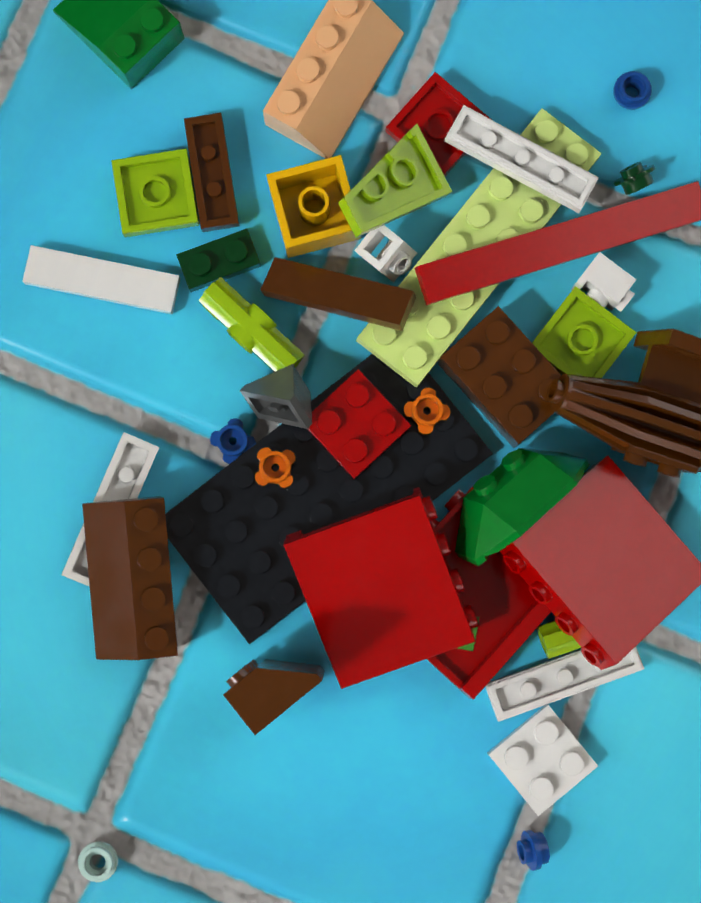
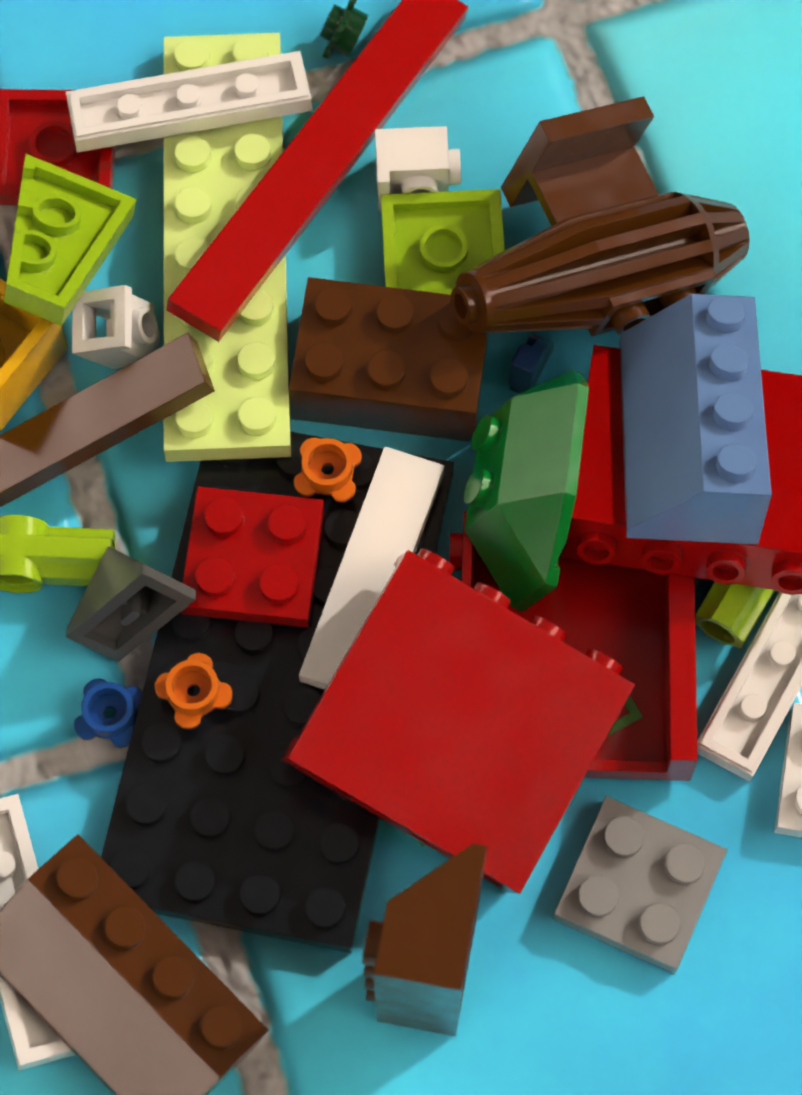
camera: 40 degrees left, 15 degrees down
(404, 725) = (640, 884): none -> light grey plate
(419, 469) = (385, 529): none -> white tile
(569, 434) = (529, 363): none -> dark blue tile
(614, 542) = (695, 423): none -> medium blue slope

